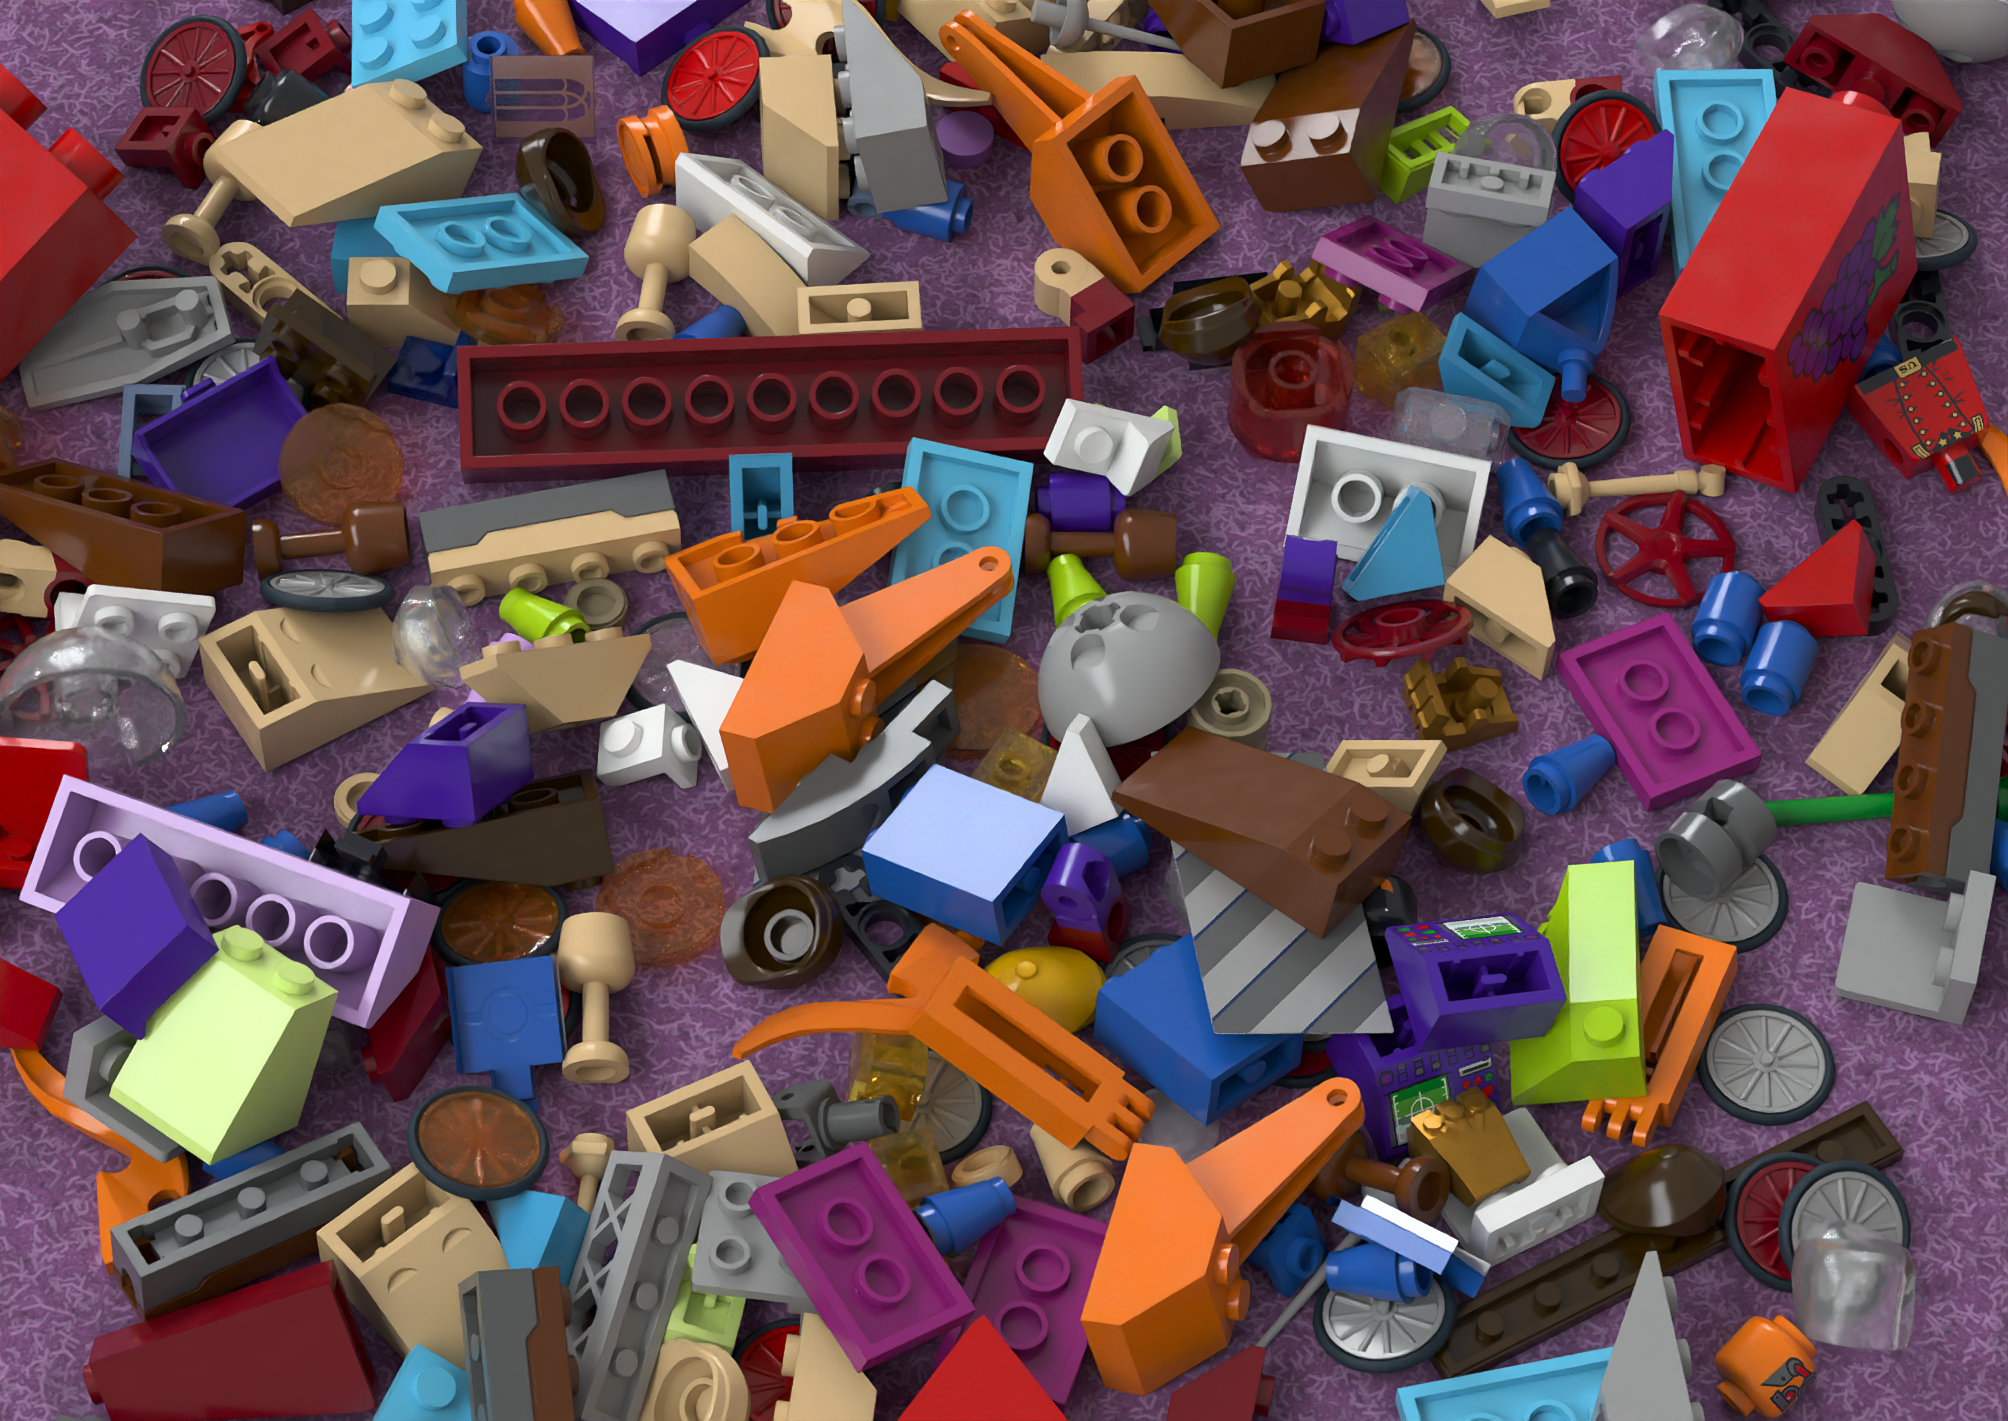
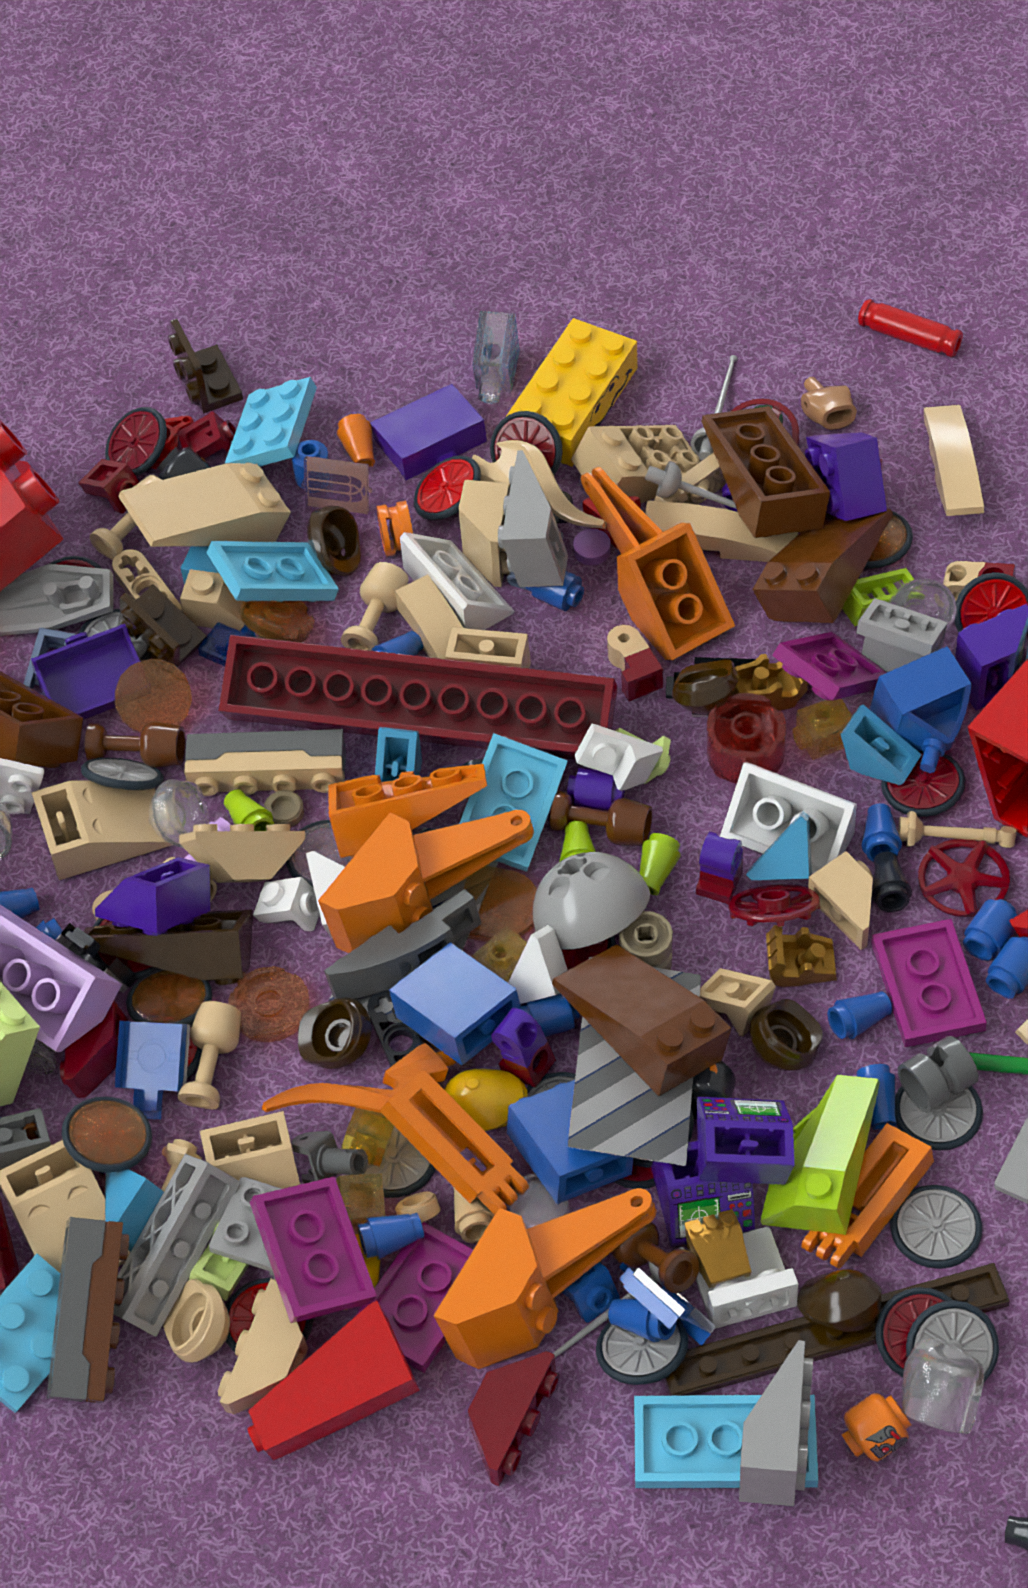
camera: 20 degrees right, 0 degrees up
(1451, 424) = (843, 778): clear torso -> none

